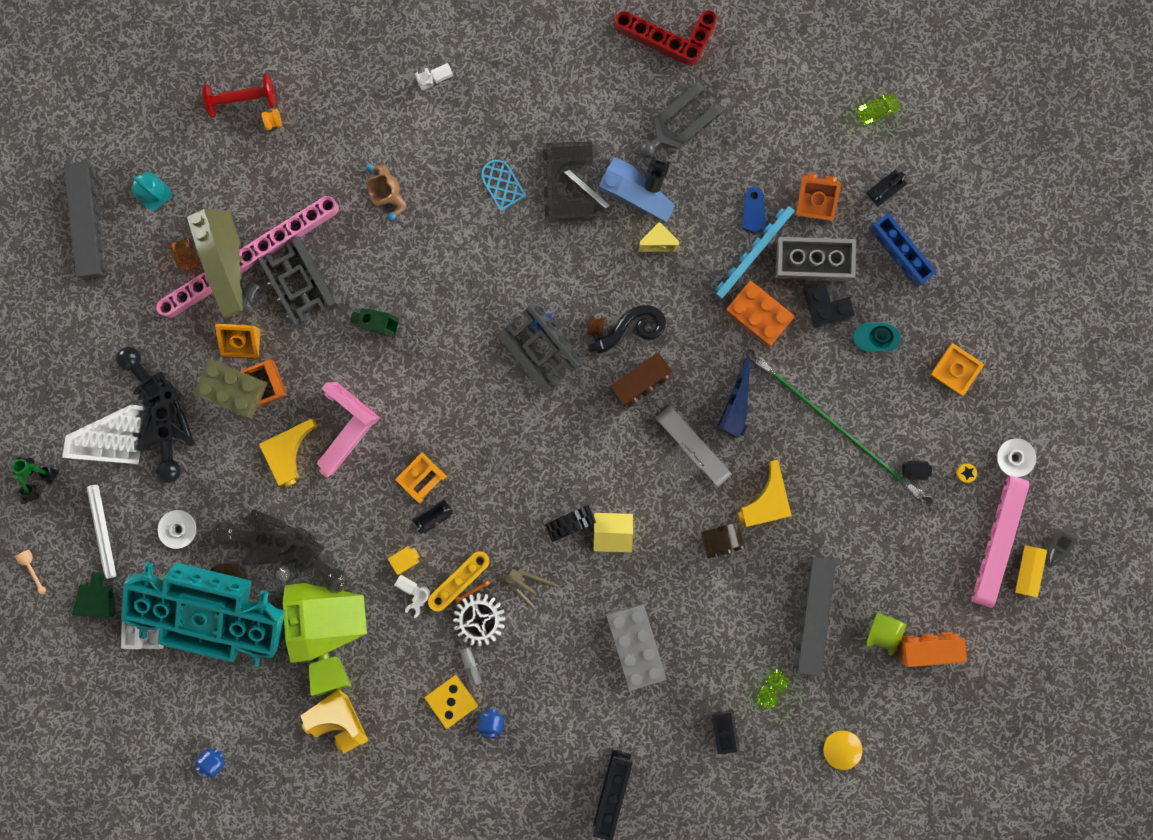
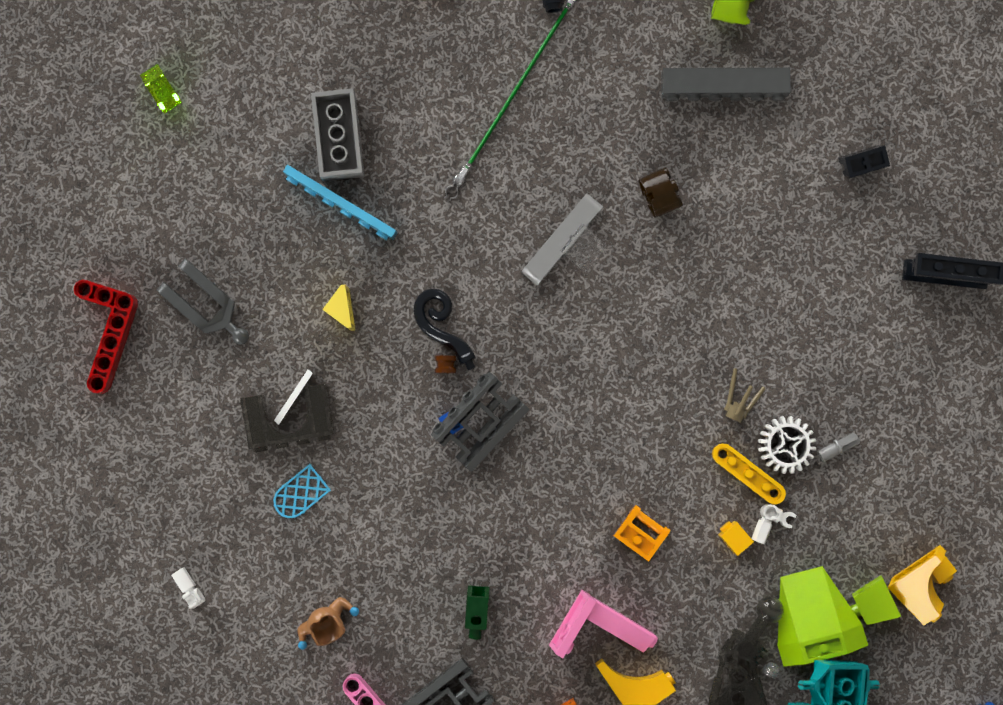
camera: 105 degrees left, 0 degrees up
(437, 513) = (677, 507): black hinge -> none
(451, 701) = (879, 462): yellow tile -> none
(458, 600) = (769, 471): orange hinge -> none
(490, 723) = (897, 415): blue head -> none
(570, 523) = (668, 359): black wheel -> none
(613, 532) = (668, 312): light yellow slope -> none
(628, 186) = (285, 346): medium blue wedge -> none
(636, 646) = (789, 269): light grey brick -> none
(641, 380) = (499, 304): reddish brown brick -> none
(656, 173) = (268, 322): black piece -> none
(735, 412) = (519, 199): dark blue wedge -> none
(754, 211) = (292, 209): blue piece -> none
(759, 314) = (407, 187): orange brick -> none
(770, 504) = (611, 146): yellow arch -> none
(777, 683) = (818, 120): clear neon green hinge -> none
(818, 197) = (267, 141): orange plate -> none
(823, 310) = (393, 118): black brick -> none
(842, 750) = (862, 35): yellow dish -> none
(877, 336) = (413, 56): teal piece -> none
(887, 187) = (246, 68): black hinge -> none
(902, 250) = (314, 42): blue brick -> none

